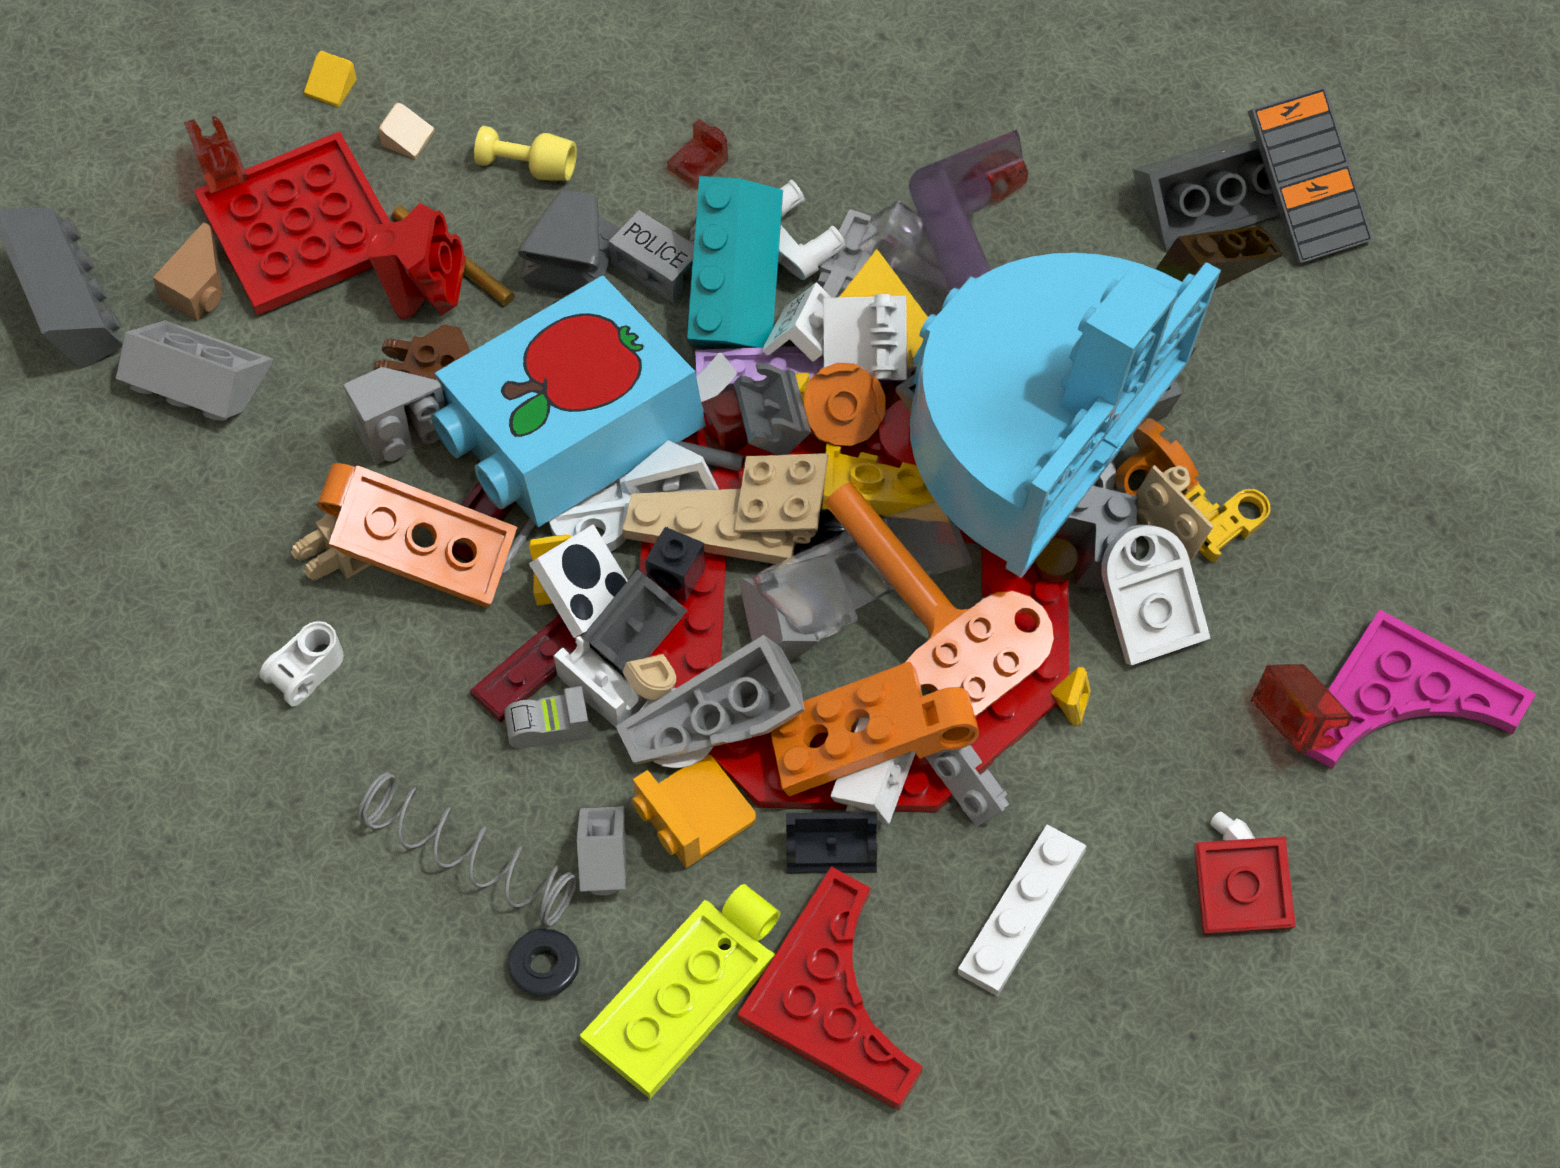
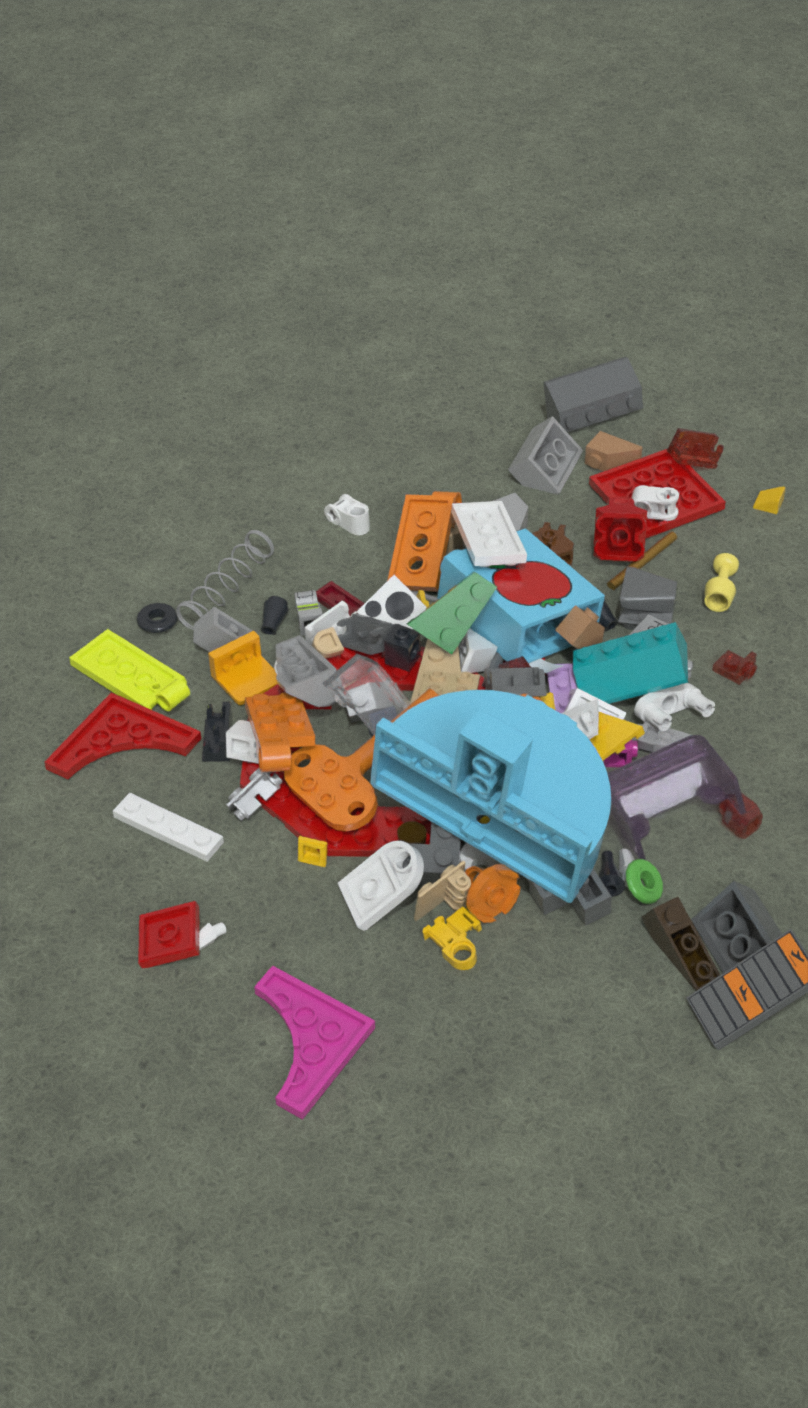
camera: 90 degrees right, 15 degrees down
(351, 213) = (655, 501): none -> white piece
(405, 131) = (734, 532): slope -> none
(472, 409) = (488, 533): none -> white plate
(553, 774) = (273, 614): none -> black cone
(658, 473) = (455, 612): none -> wing
(662, 312) = (581, 628): none -> medium nougat slope
(1299, 706) = (293, 963): clear red hinge -> none

